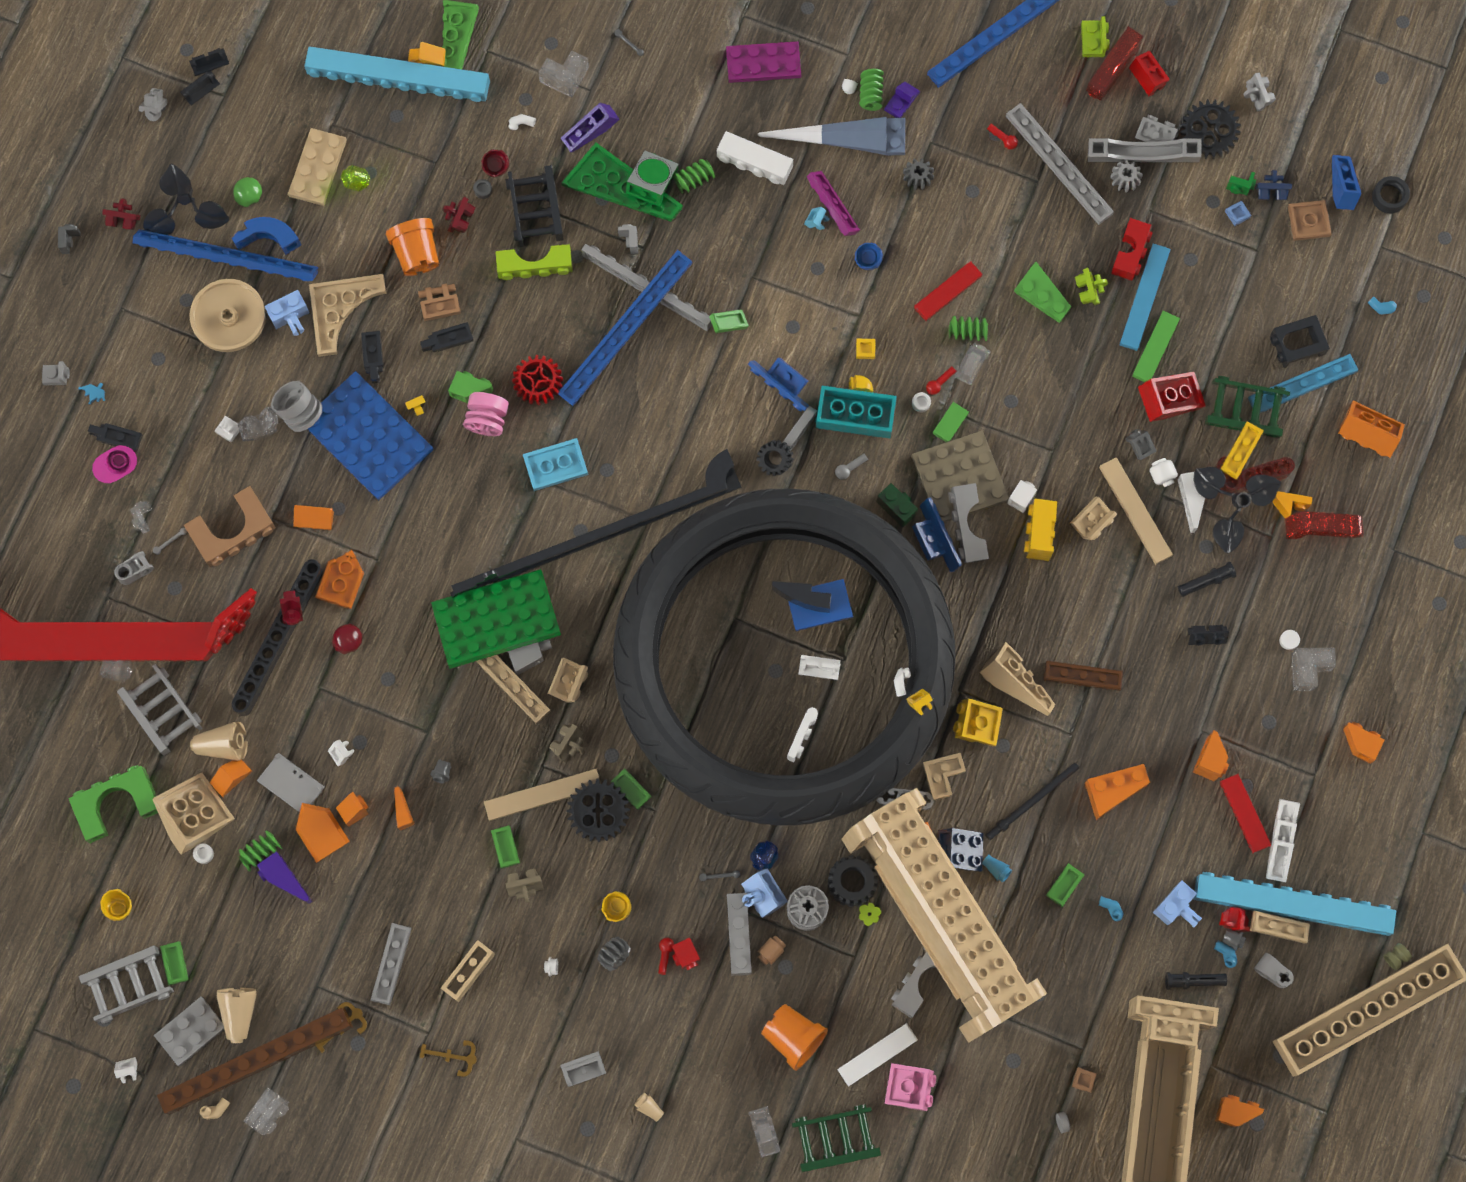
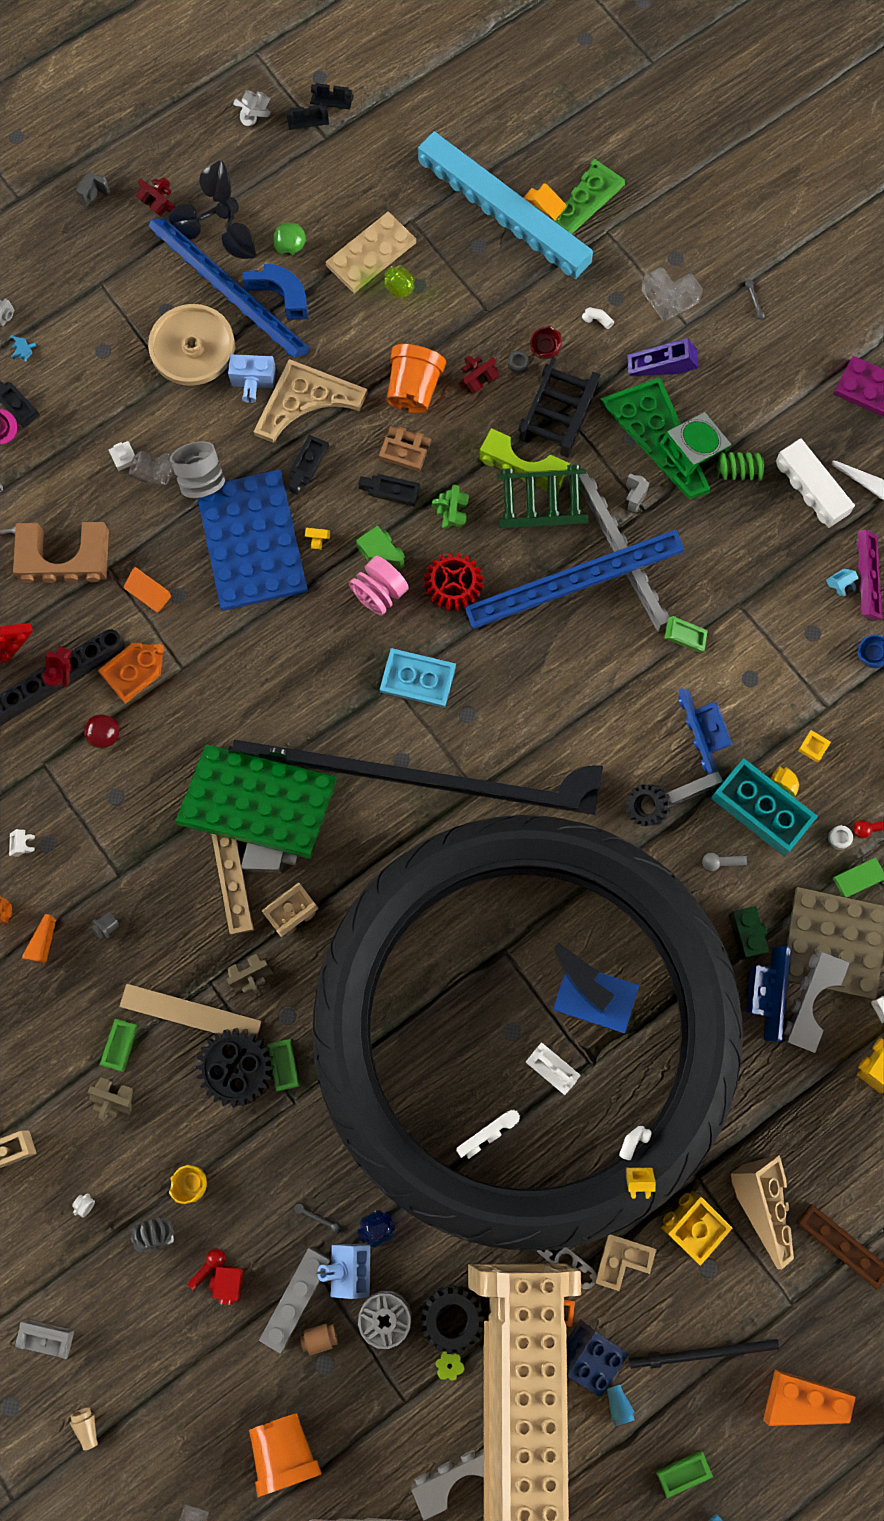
camera: 35 degrees right, 0 degrees up
(499, 327) = (447, 507): none -> bright green hips
(581, 290) = (553, 515): none -> dark green fence

